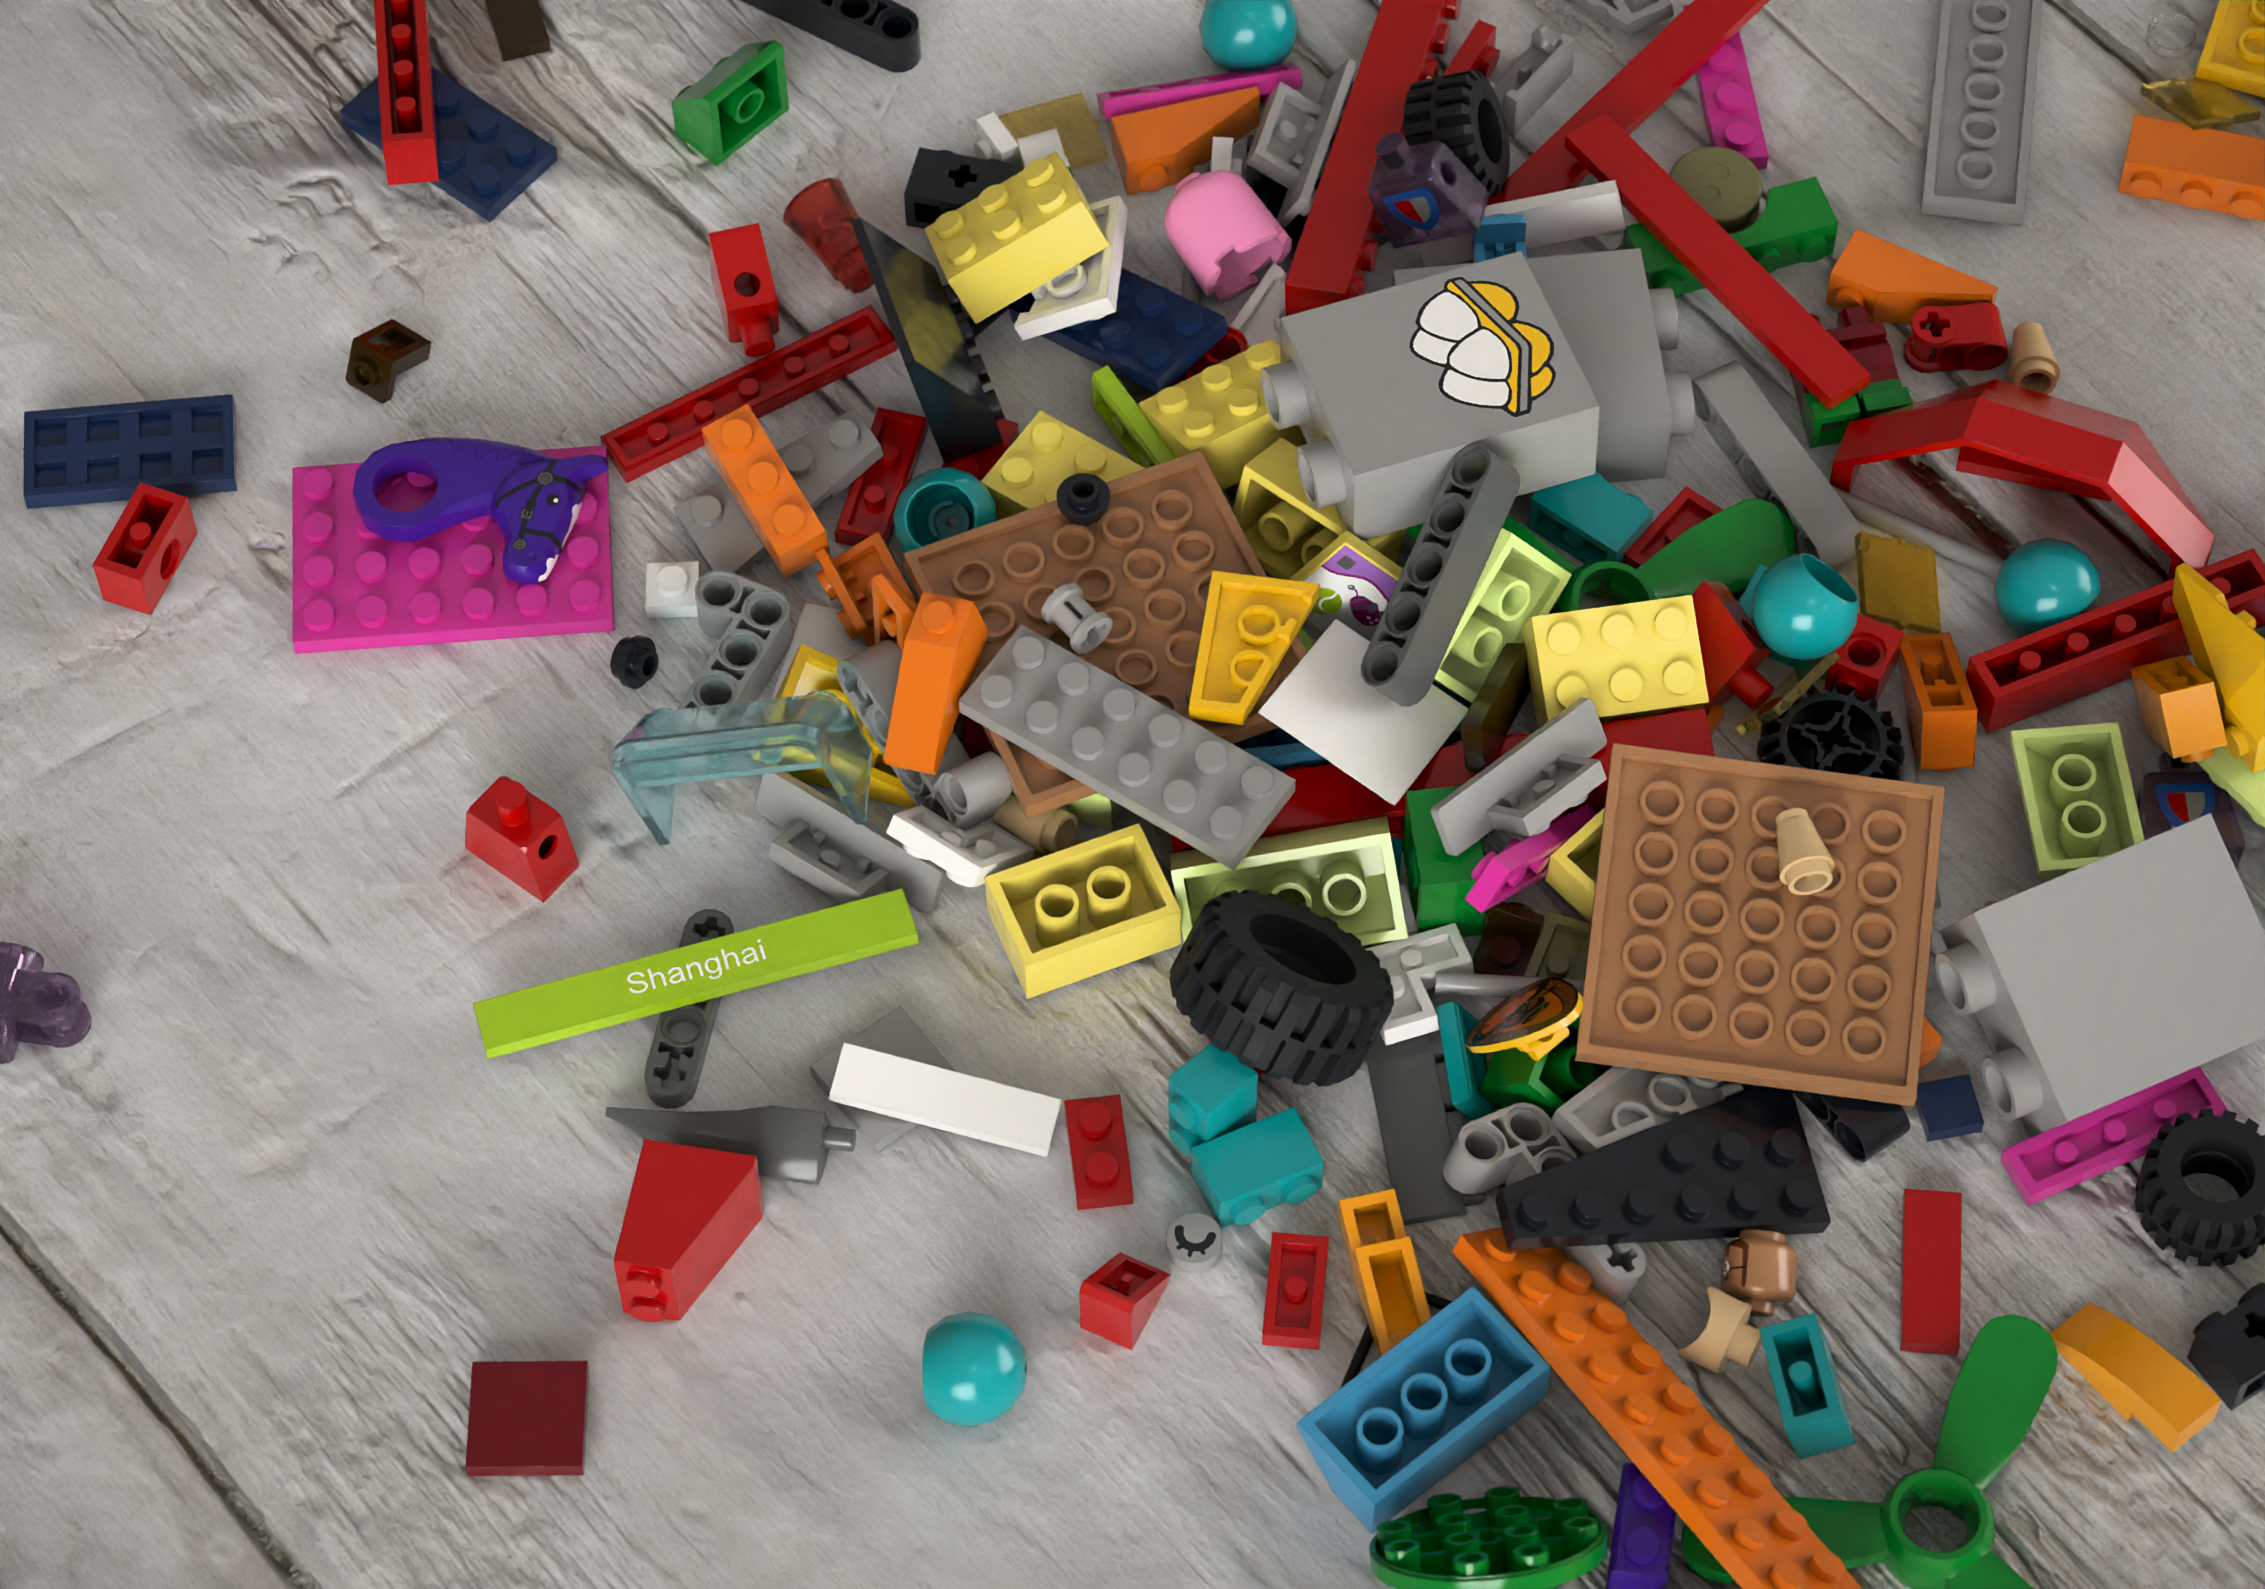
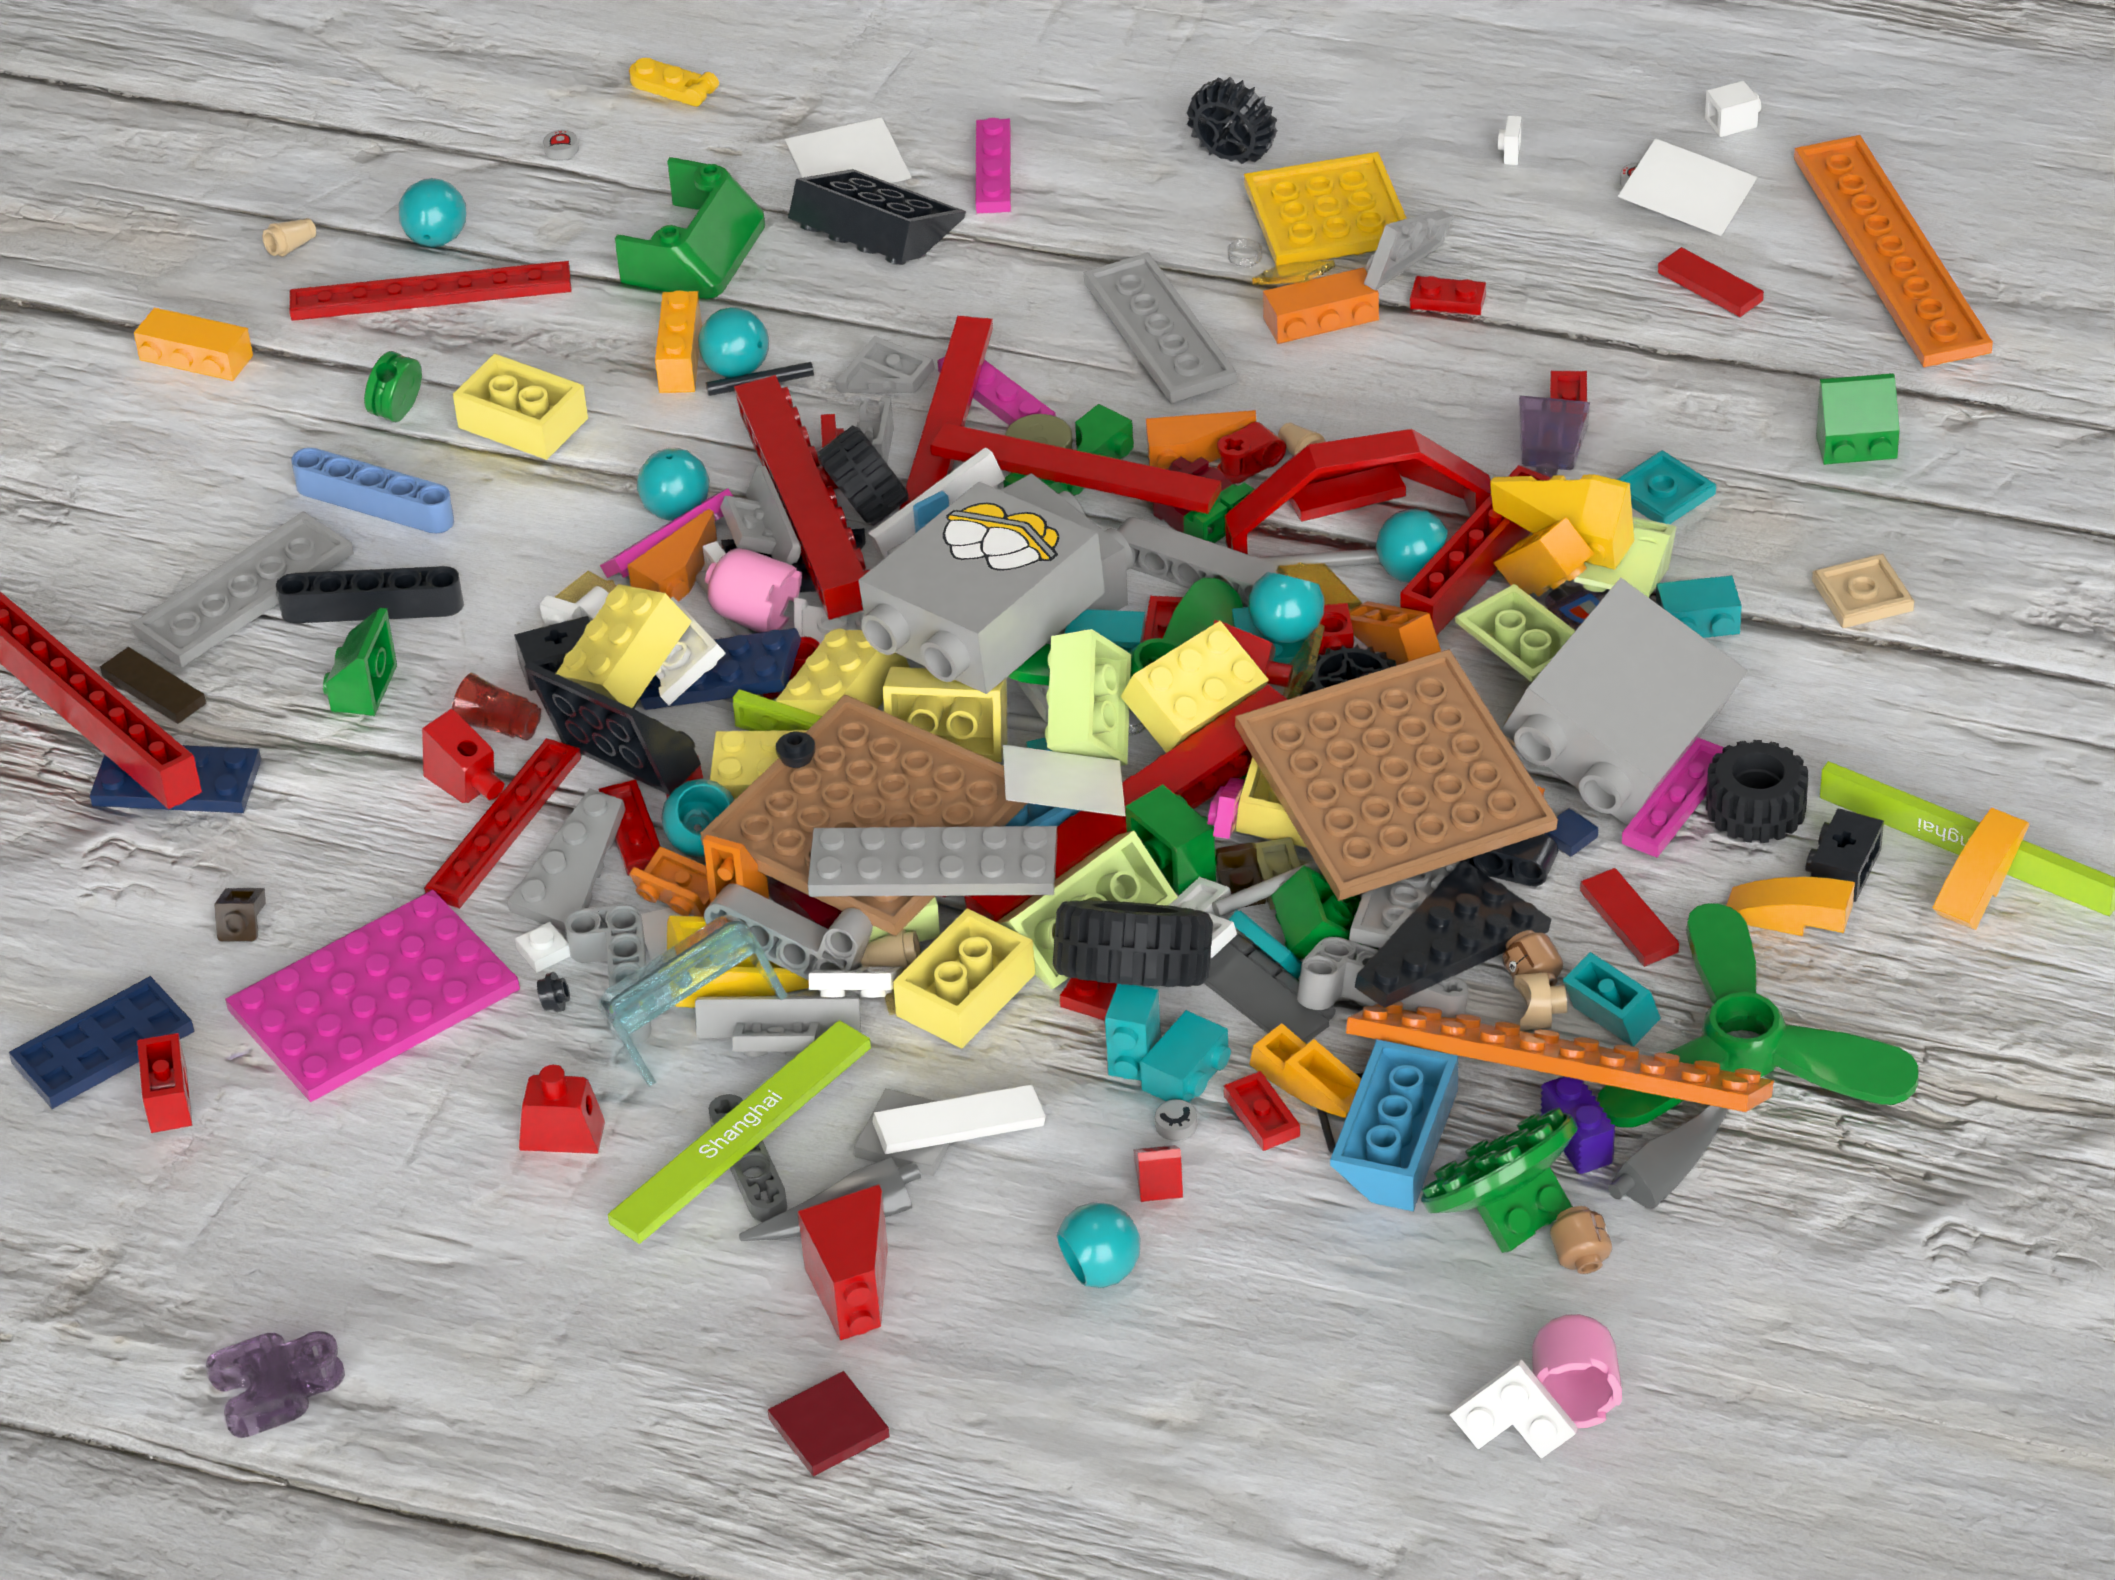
camera: 30 degrees left, 15 degrees down
(520, 488) = (365, 941): dark purple animal -> none
(765, 490) = (572, 851): orange brick -> none
(932, 678) = (781, 883): orange slope -> none
(1076, 618) = (846, 808): light grey bush -> none
(1098, 1152) = (1076, 1104): red plate -> none
(1243, 641) = (961, 772): yellow wing -> none
(1353, 585) = (1000, 720): tile -> none
(1424, 192) = (873, 503): clear purple torso -> none
(1440, 575) = (1062, 675): dark grey beam -> none
(1495, 707) = (1141, 742): dark brown tile -> none
(1527, 1016) = (1297, 881): shield -> none
(1528, 782) = (1200, 762): light grey bracket -> none
(1802, 853) = (1397, 717): tan cone -> none

